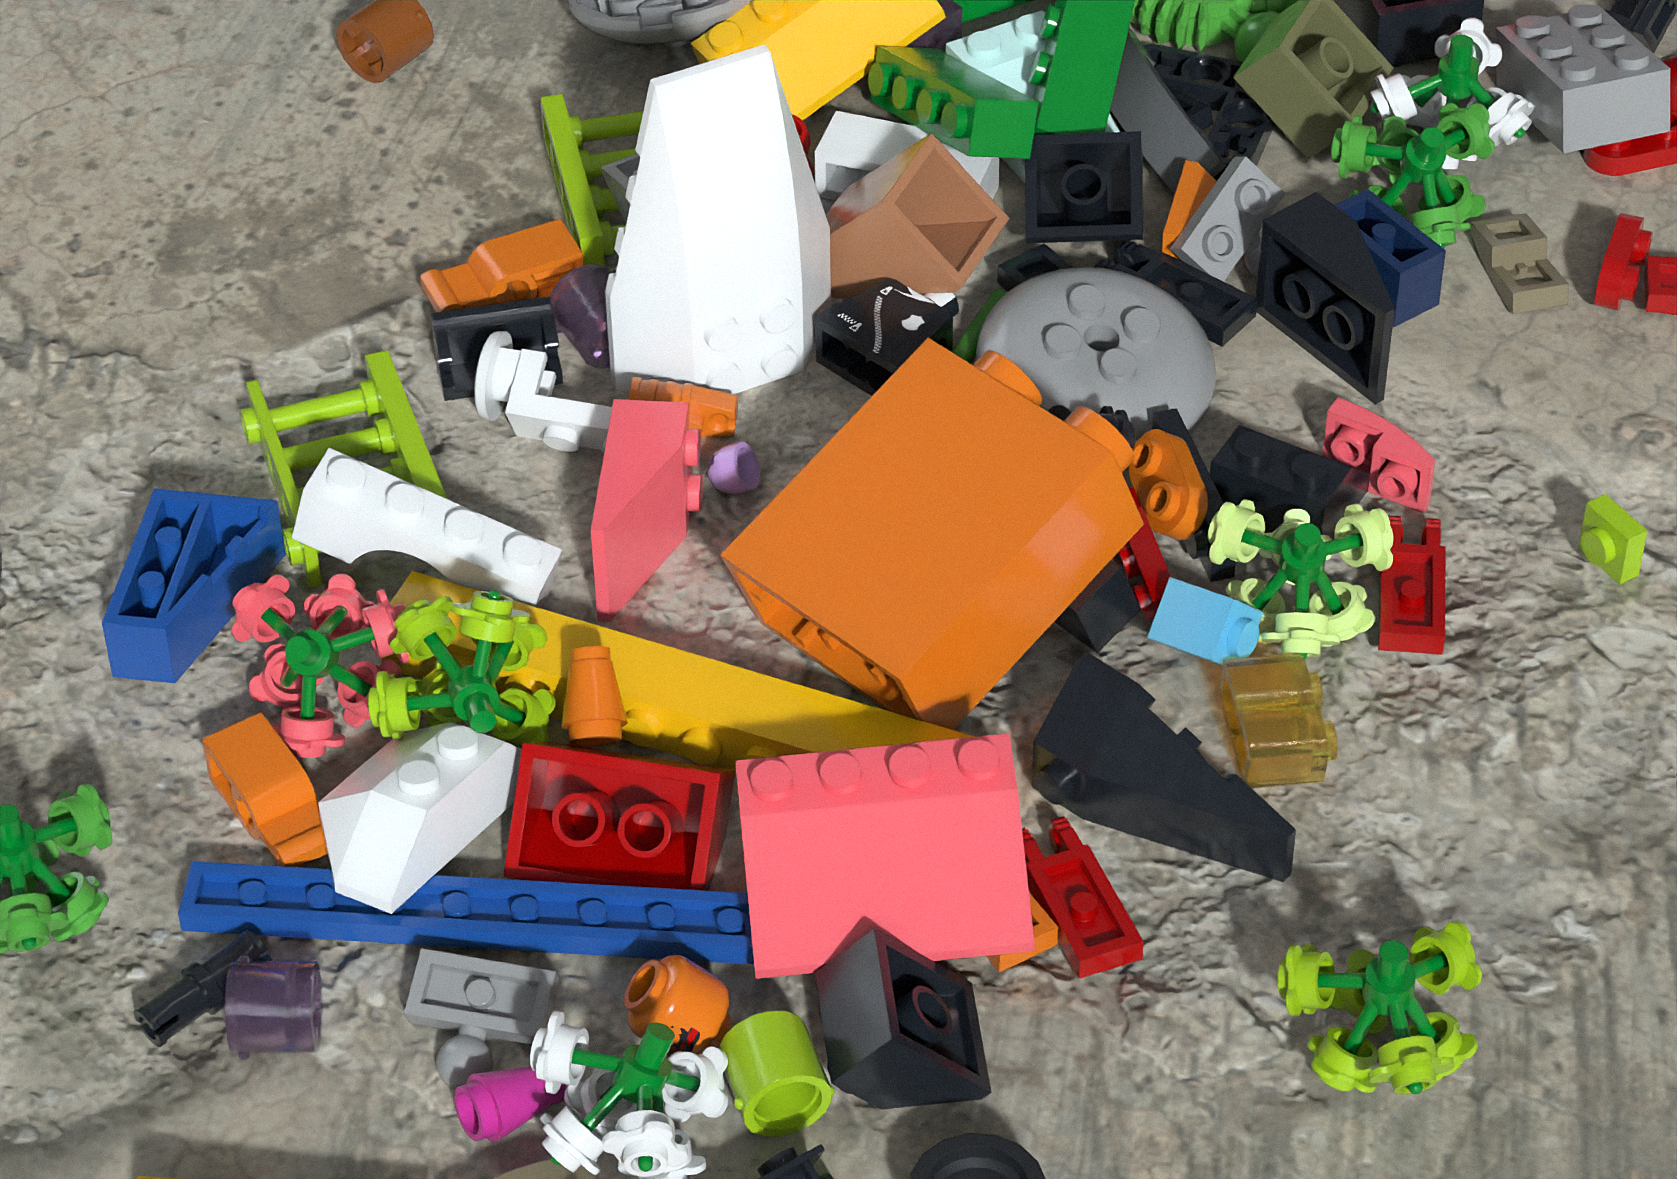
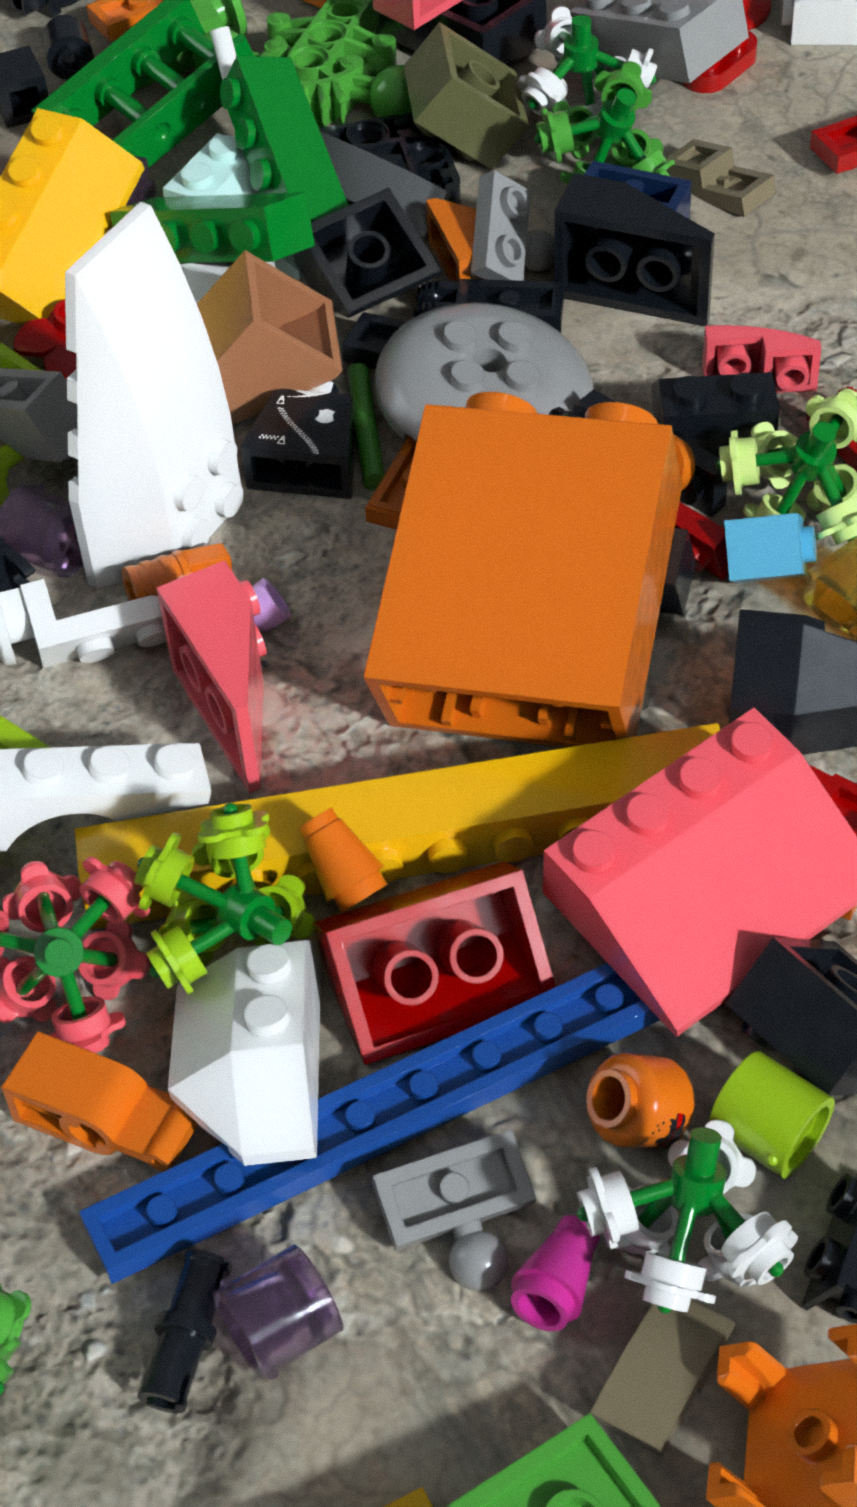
camera: 30 degrees left, 5 degrees up
(1618, 274) = (795, 145): red plate -> none

